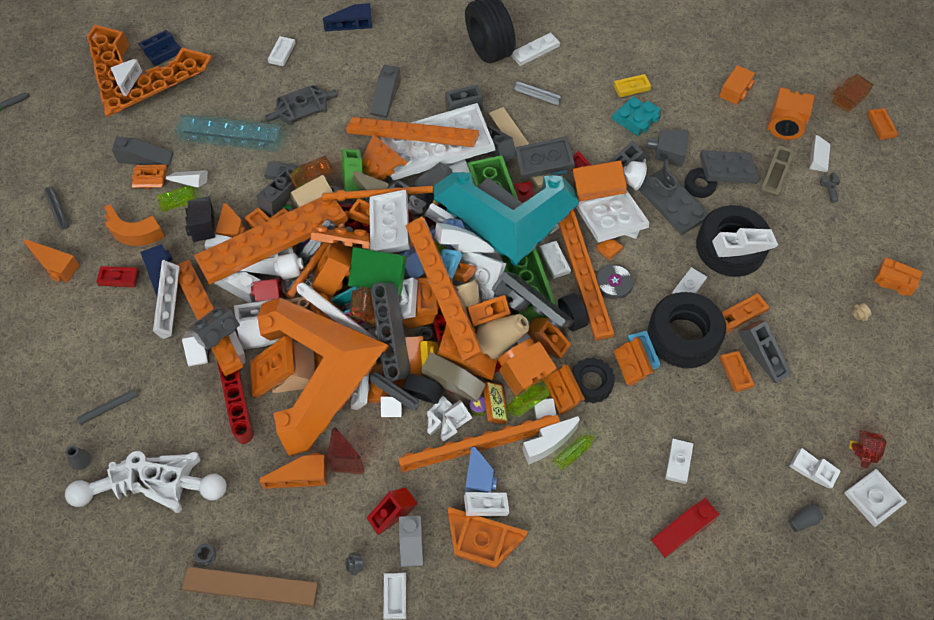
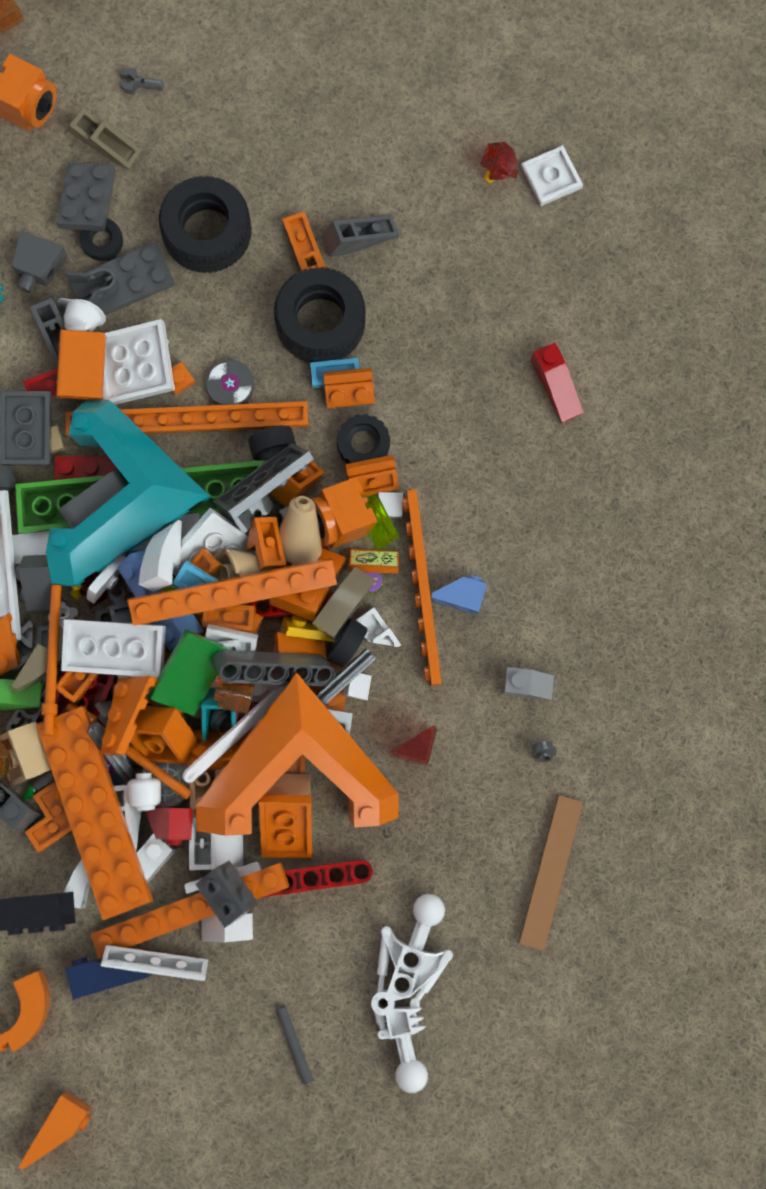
camera: 85 degrees left, 20 degrees up
(77, 457) = (363, 1072): dark grey cone -> none
(117, 276) = (100, 1034): red plate -> none
(210, 557) = (501, 929): dark grey bush -> none
(229, 223) = (48, 872): orange slope -> none
(301, 472) = (426, 798): orange slope -> none
(394, 505) = (488, 700): red slope -> none
(394, 596) = (584, 711): white tile -> none
(426, 331) = (273, 630): dark grey plate -> none
(453, 419) = (385, 613): white slope -> none
(482, 538) = (535, 605): orange wing -> none
(486, 504) = (498, 592): white plate -> none
(549, 439) = (432, 506): white slope -> none
(554, 259) = (187, 449): white plate -> none
(573, 451) = (447, 483): clear neon green slope -> none
(679, 461) = (477, 369): white plate -> none
(691, 282) = (253, 296): white plate -> none
(736, 371) = (380, 274): orange plate -> none
(744, 242) = (225, 212): white slope -> none
(805, 518) = (565, 254): dark grey cone -> none
(816, 470) = (509, 227): white slope -> none
(819, 154) = (87, 79): white slope -> none
(861, 312) = (327, 110): tan plate -> none
(898, 277) = (289, 52): orange brick -> none

